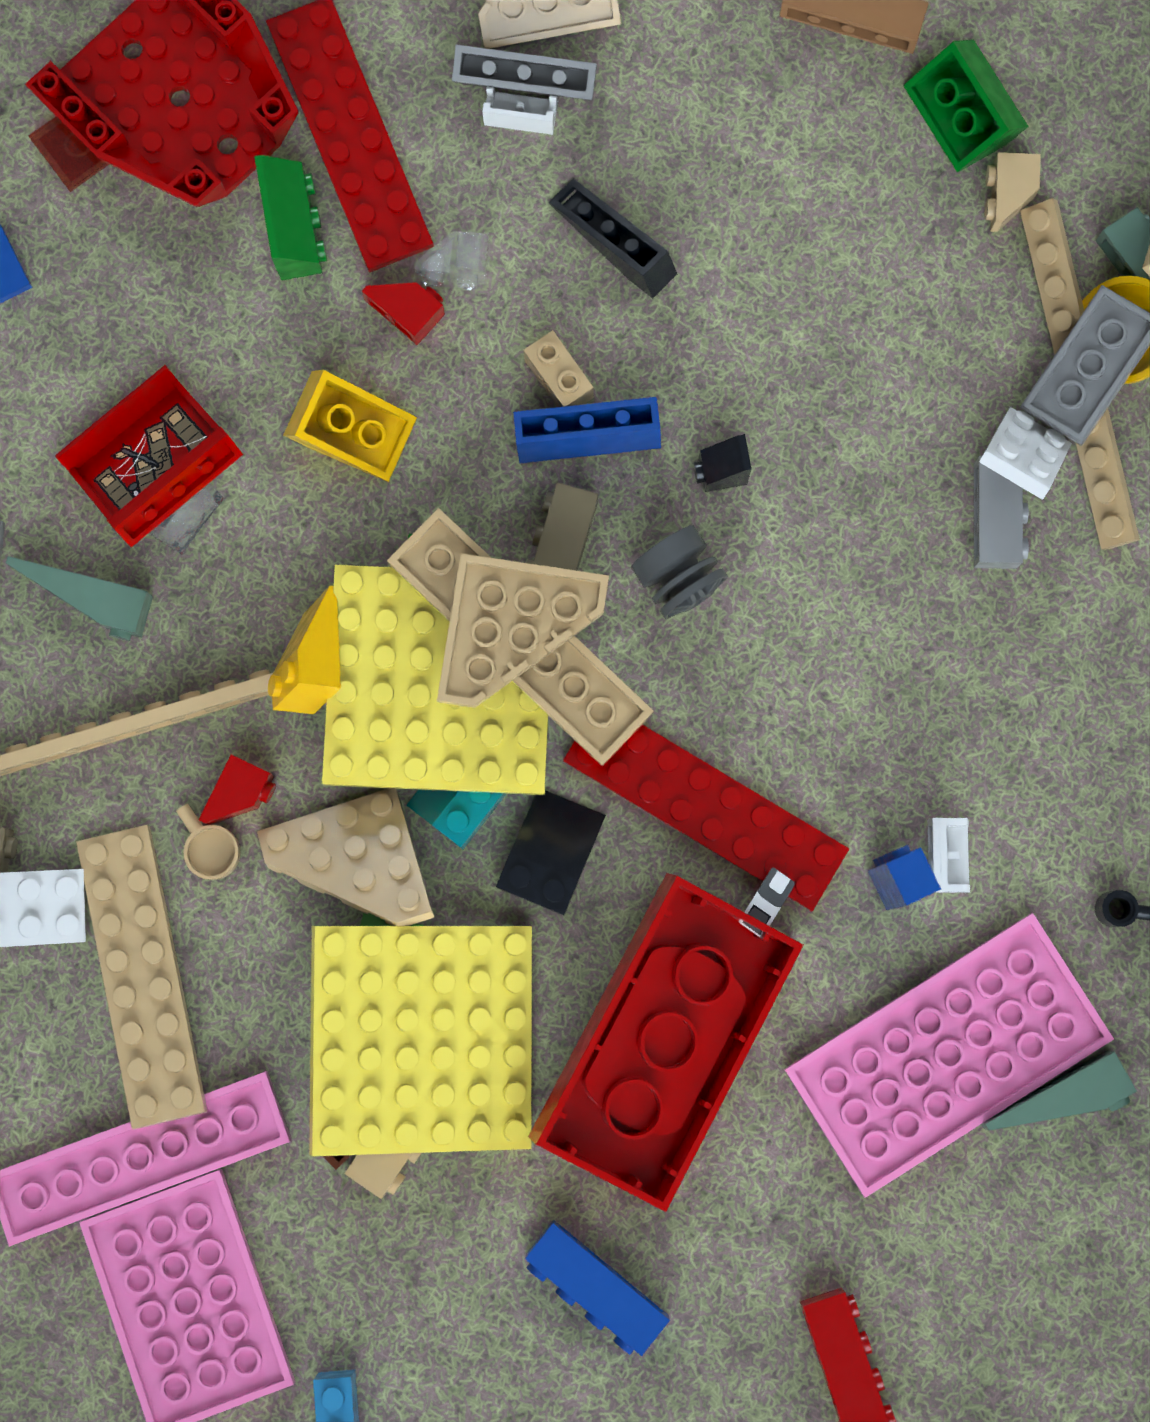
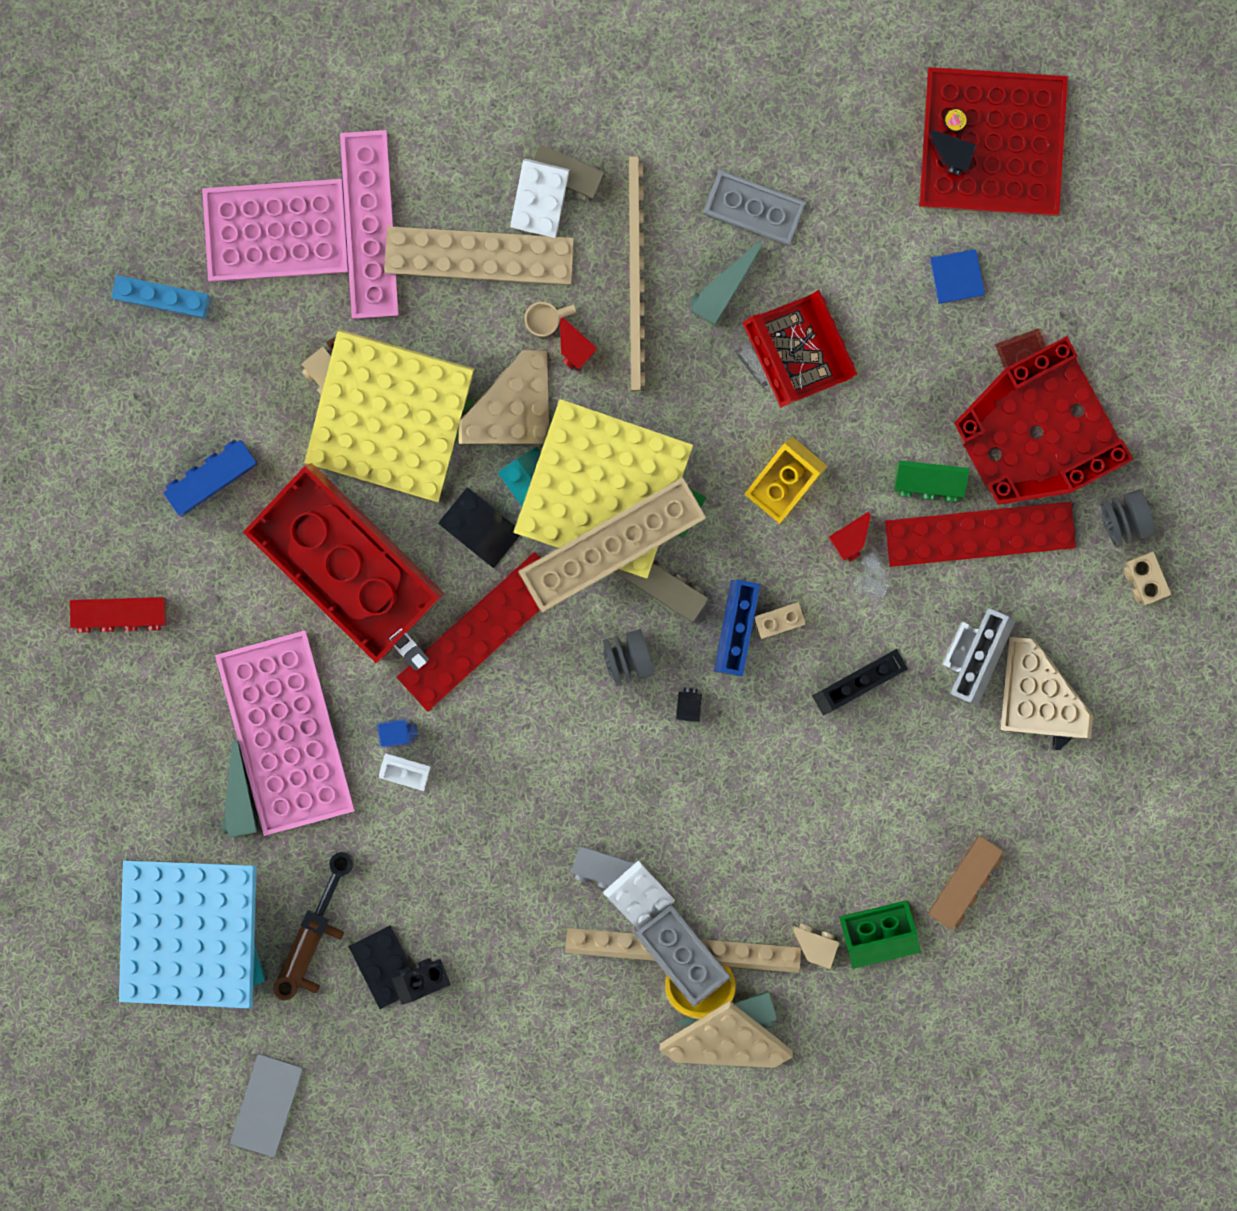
camera: 110 degrees right, 5 degrees up
(311, 660) = (639, 413): yellow slope -> none
(509, 620) = (621, 540): tan plate -> none

